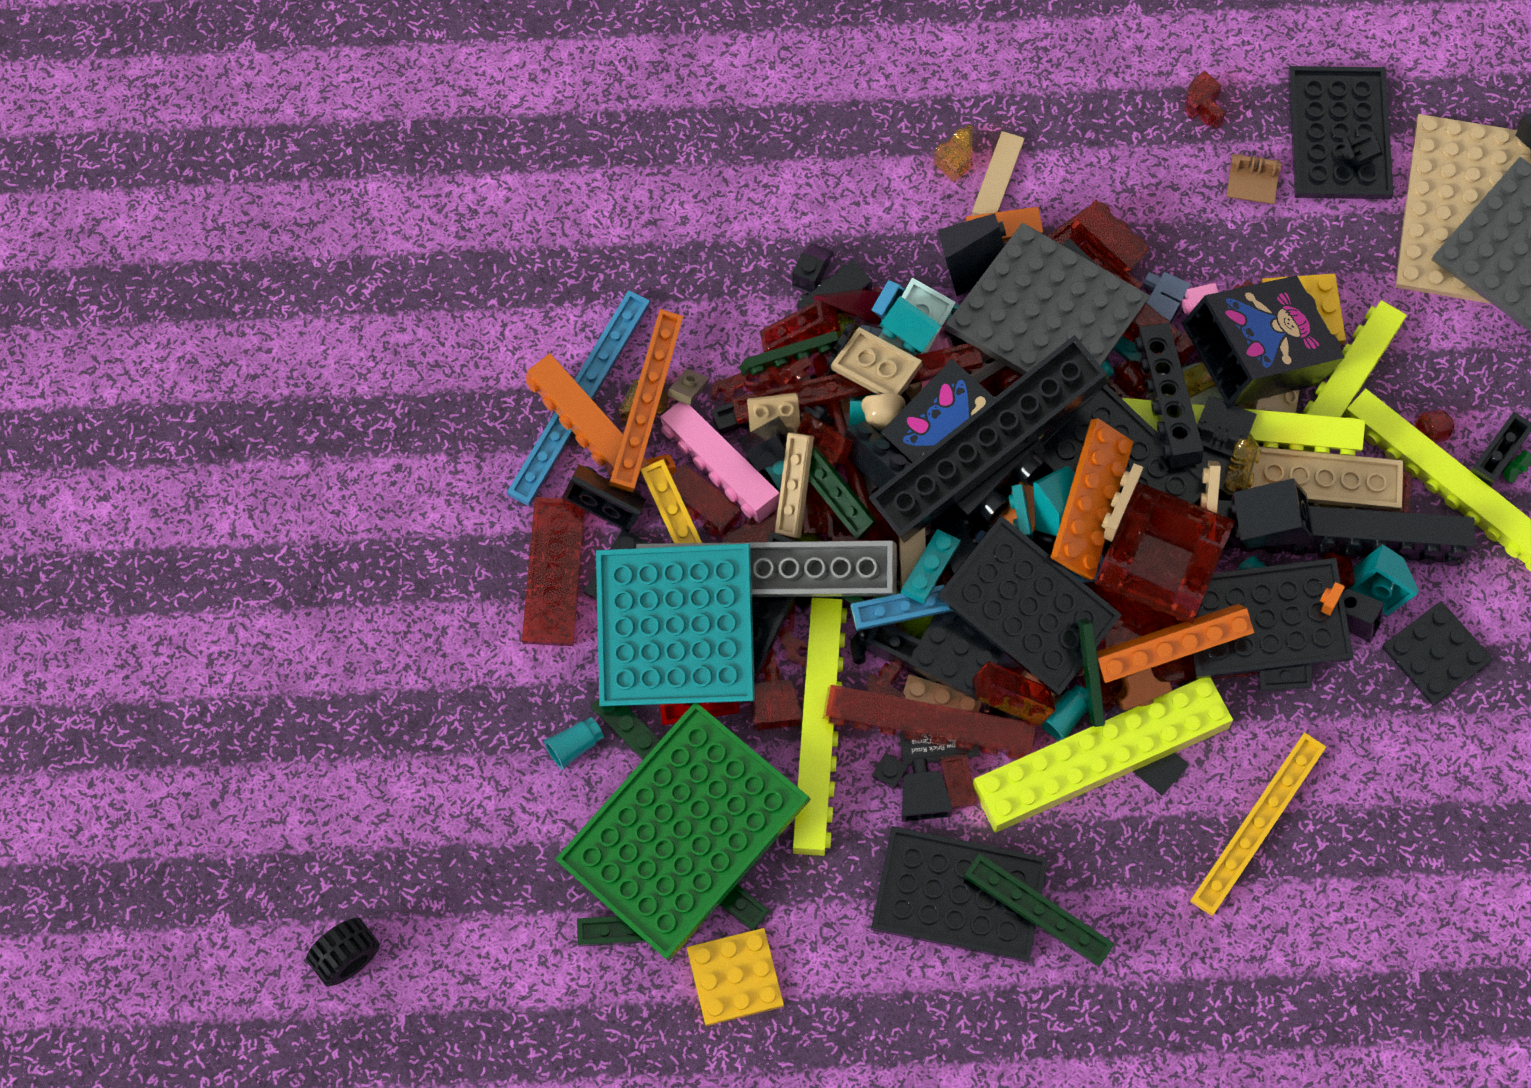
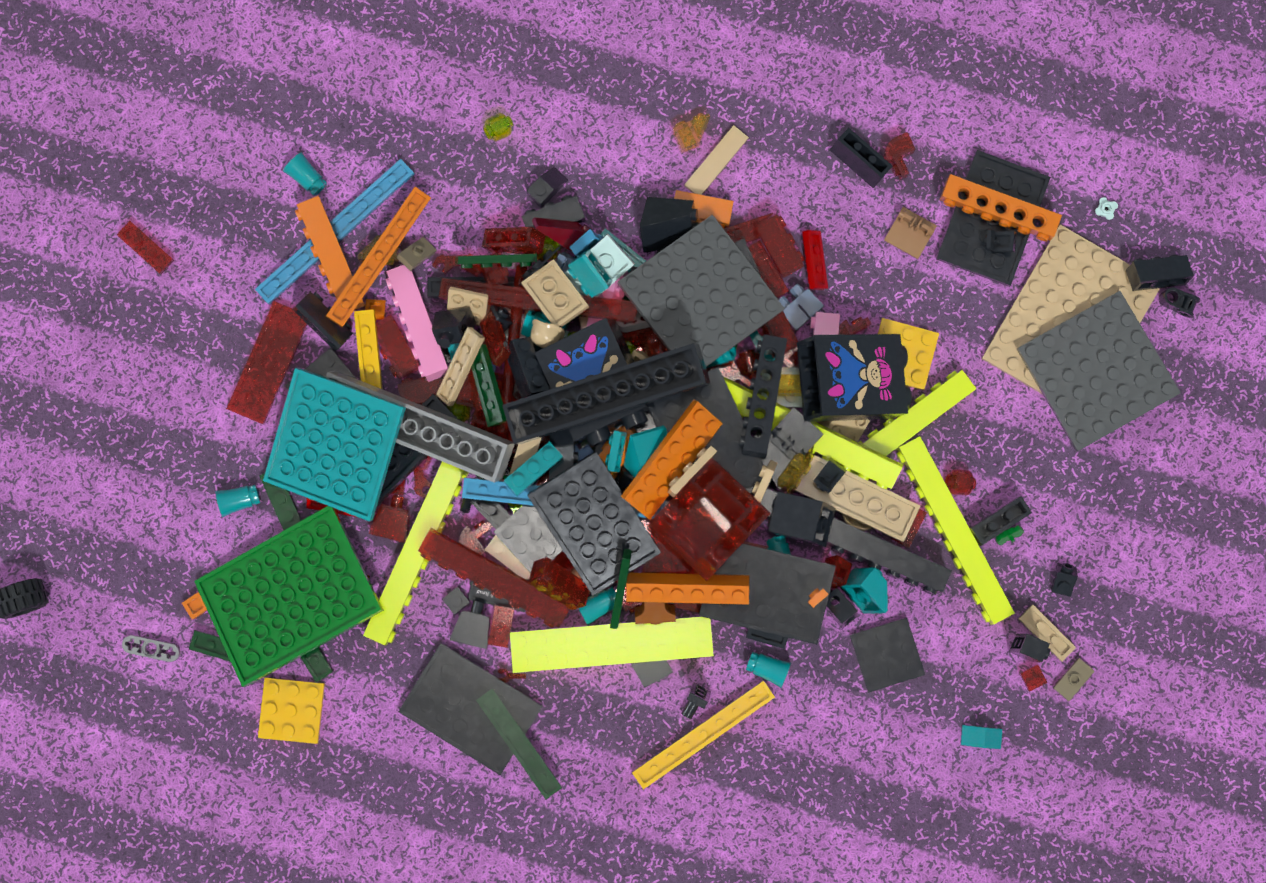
camera: 20 degrees right, 15 degrees up
(355, 490) = (145, 247): none -> clear red plate
(520, 344) = (305, 174): none -> teal plant
(537, 970) = (138, 640): none -> light grey beam
(567, 889) = (194, 606): none -> orange plate
(729, 219) = (498, 127): none -> clear neon green head
(990, 838) = (510, 675): none -> clear red hand
(1157, 242) = (815, 260): none -> red plate
(1163, 115) = (861, 157): none -> black brick
(1233, 772) = (697, 697): none -> black piece
(1283, 459) = (829, 476): none -> black bracket
(1304, 715) = (768, 668): none -> teal plant
(1354, 106) = (1048, 219): none -> orange brick
(1461, 87) = (1108, 214): none -> light aqua plate

